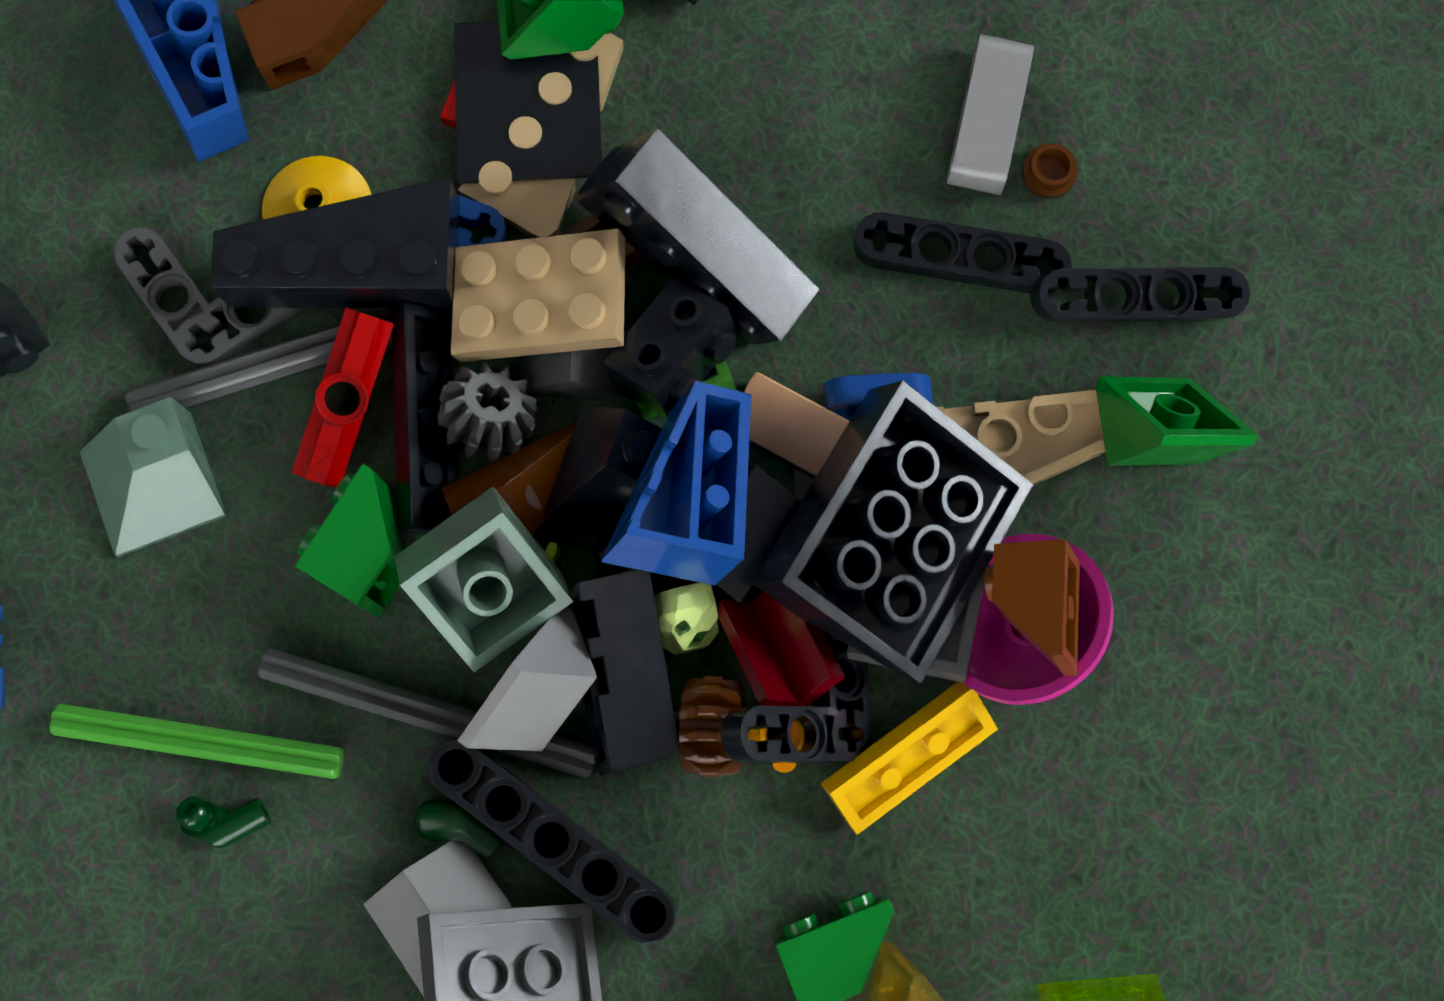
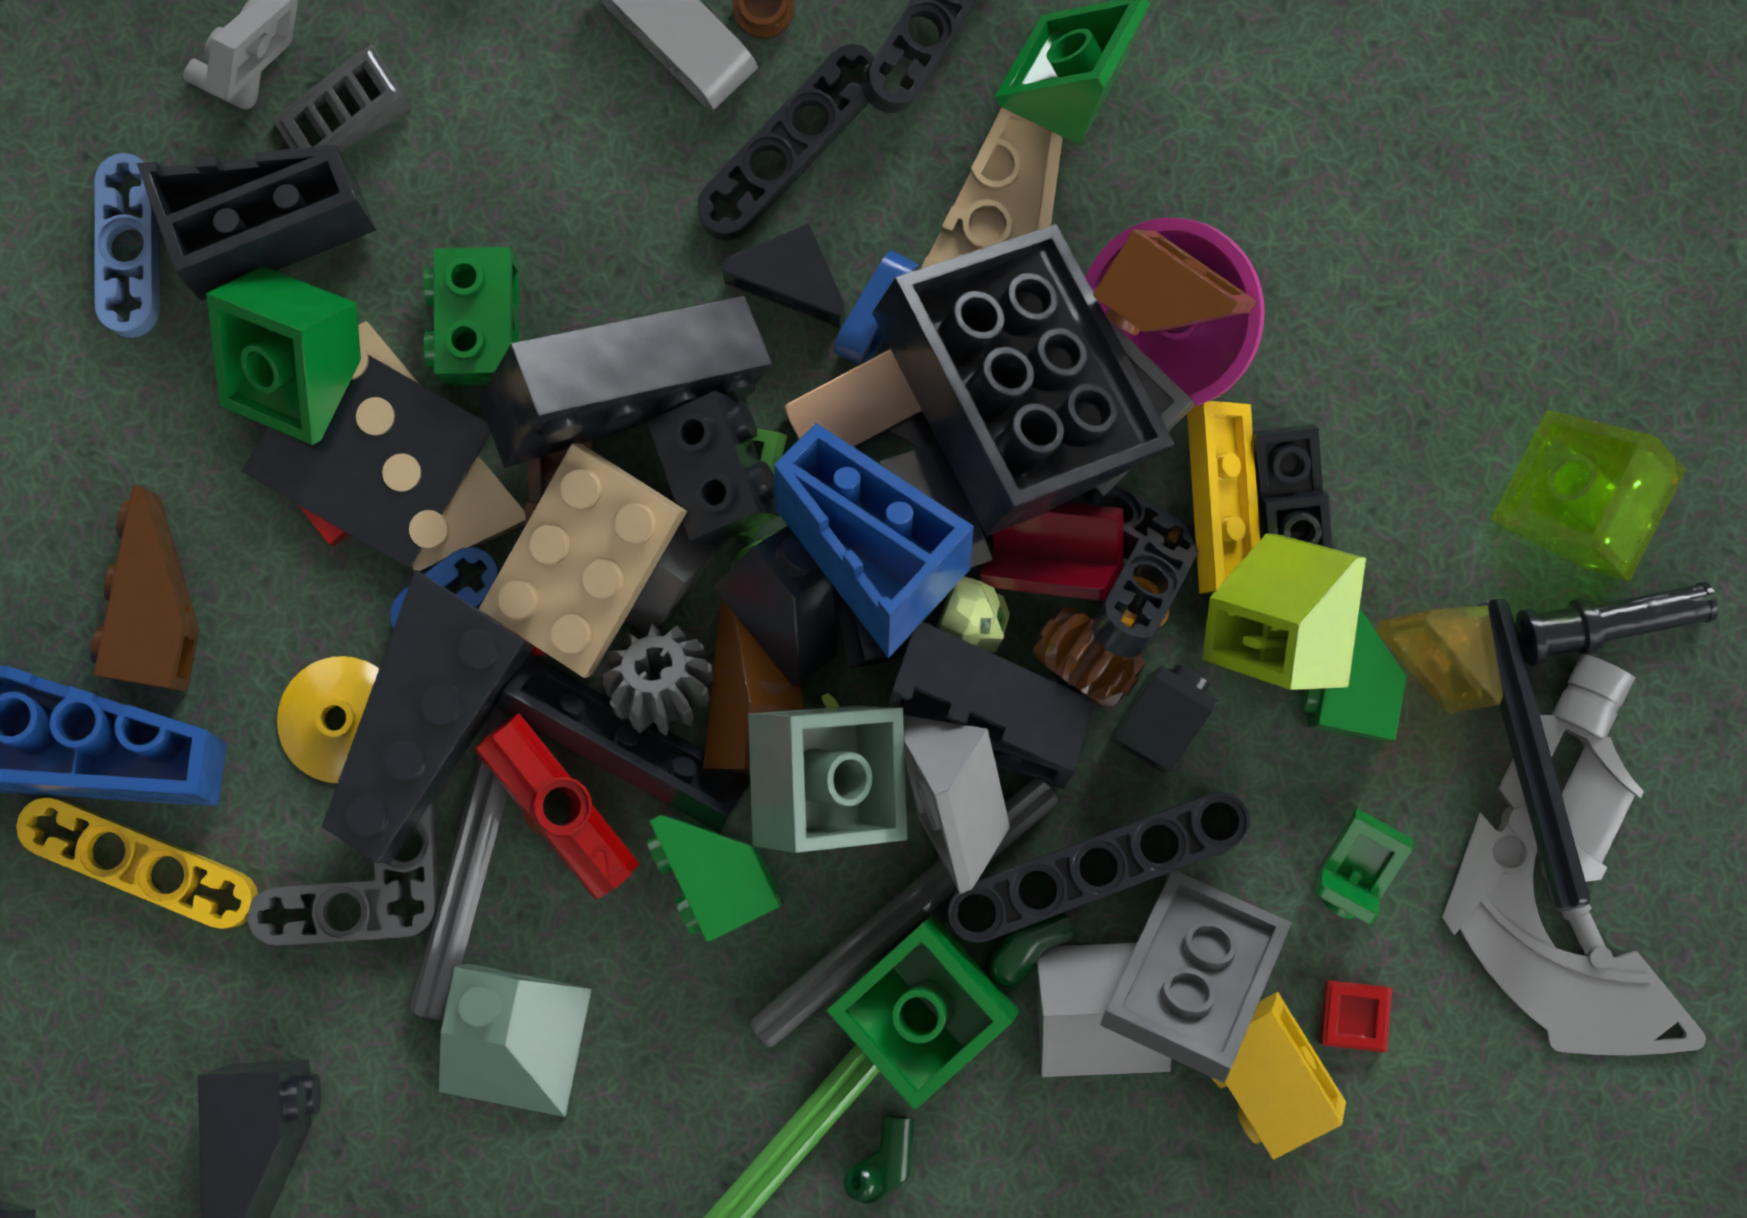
camera: 55 degrees left, 5 degrees up
(117, 134) = (136, 868): none -> yellow beam
(353, 775) = (924, 1012): none -> green slope
(685, 102) = (473, 312): none -> green brick
(702, 816) = (1164, 716): none -> black slope
(844, 863) = (1287, 615): none -> lime slope
(861, 313) = (788, 273): none -> black slope
(949, 809) = (1292, 484): none -> black slope

